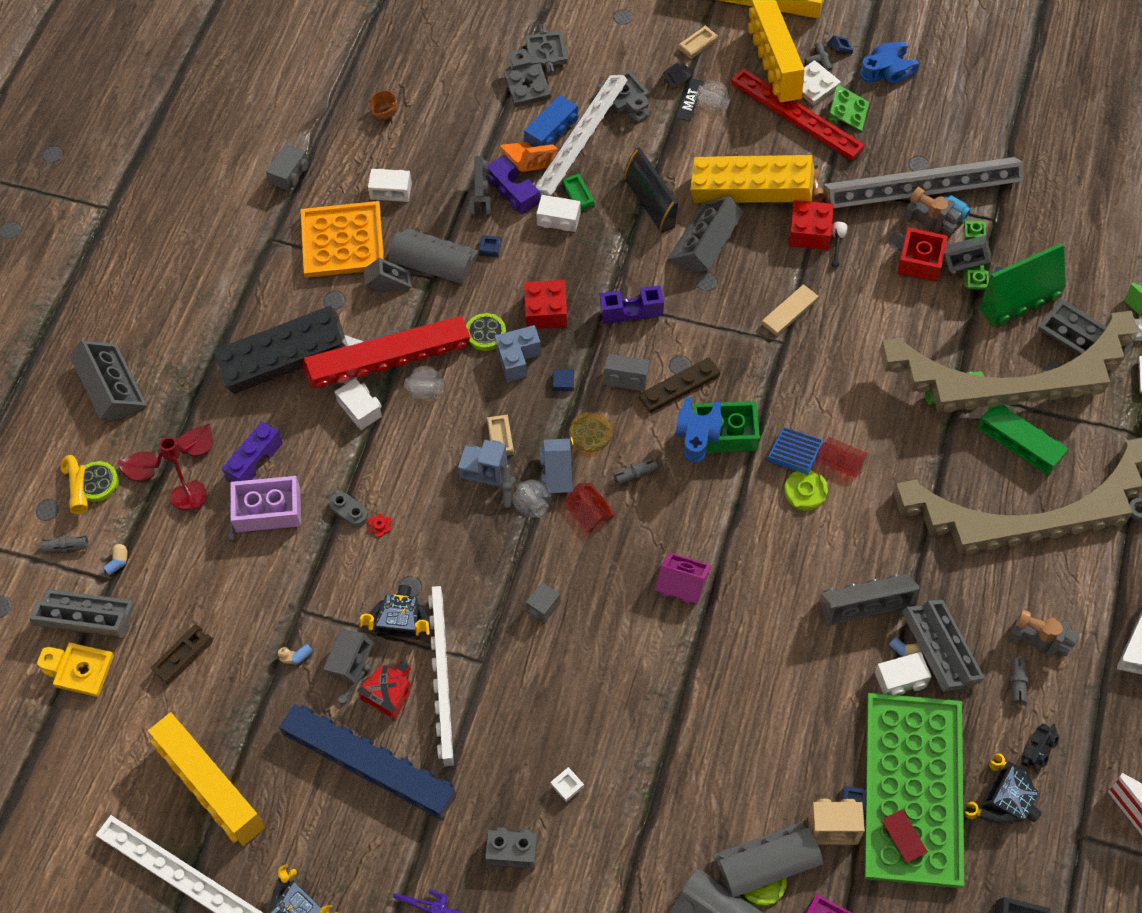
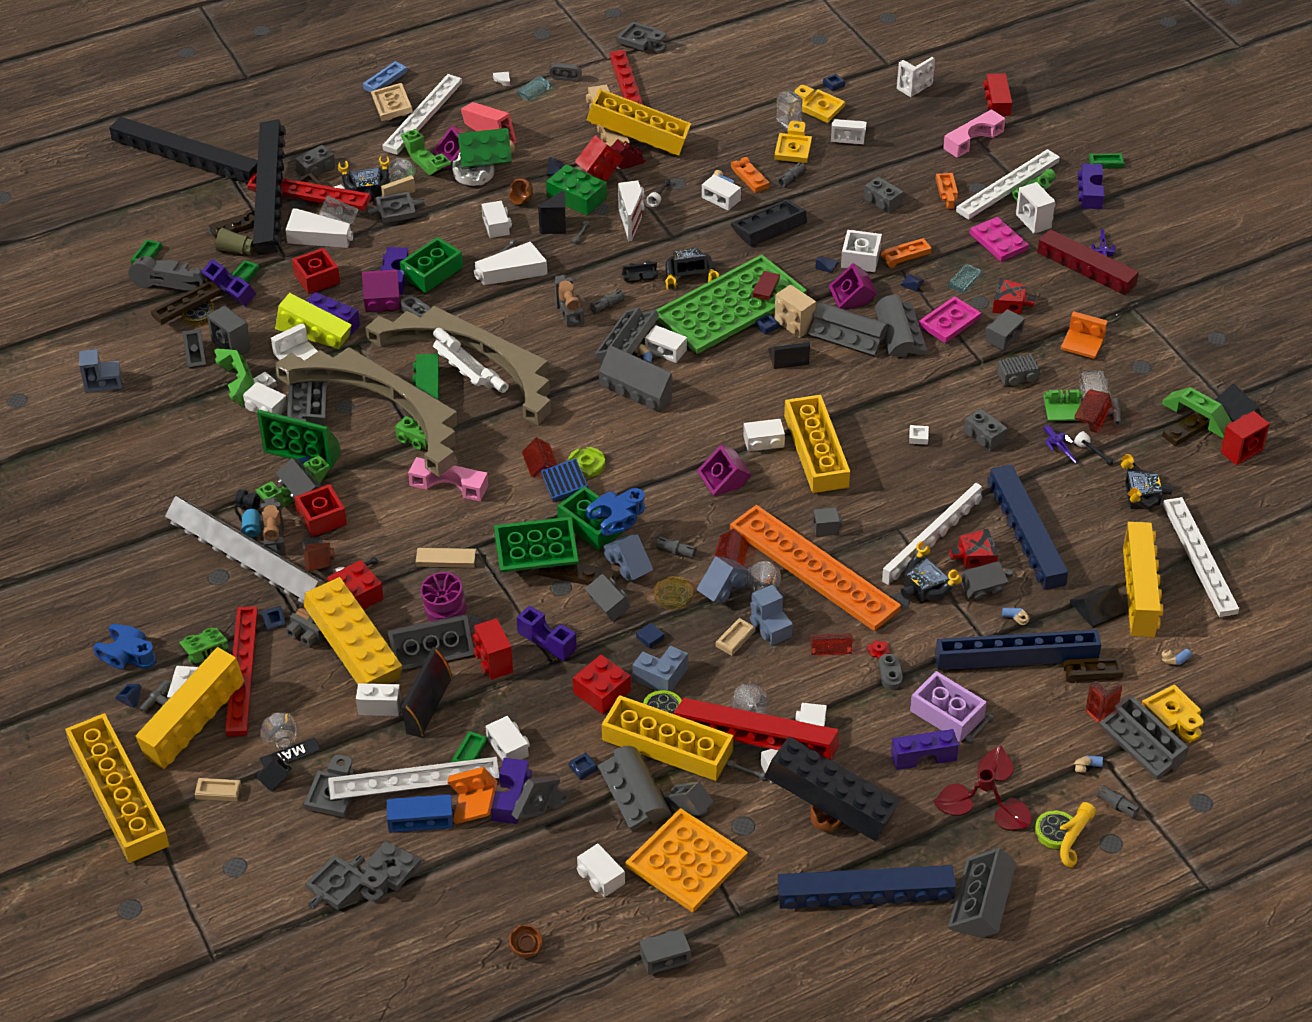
camera: 135 degrees left, 15 degrees down
(118, 731) = (1169, 658): none -> arm
(137, 609) = (1102, 702): none -> clear red panel
(196, 319) = (866, 886): none -> dark blue brick
(234, 731) = (1099, 605): none -> black slope
(254, 608) = (1016, 649): none -> dark blue brick
(418, 490) = (831, 644): none -> clear red panel
(460, 294) = (668, 737): none -> yellow brick
(506, 550) = (816, 568): none -> orange plate
(639, 676) = (817, 444): none -> yellow brick
(648, 256) = (493, 649): none -> red brick
(653, 415) = (630, 555): none -> sand blue brick
(678, 166) = (378, 699): none -> white brick
(696, 648) = (764, 435): none -> white brick
(729, 361) = (535, 544): none -> green slope
(736, 263) = (443, 596): none -> magenta wheel
(789, 775) = (790, 355): none -> black slope
(835, 166) = (273, 618): none -> dark blue slope
(858, 380) = (471, 482): none -> bright pink arch
(868, 217) = (318, 556): none -> copper slope
(991, 219) = (246, 499): none -> black wheel
(1019, 482) = (450, 348): none -> white plate
(1101, 306) = (264, 399): none -> white brick

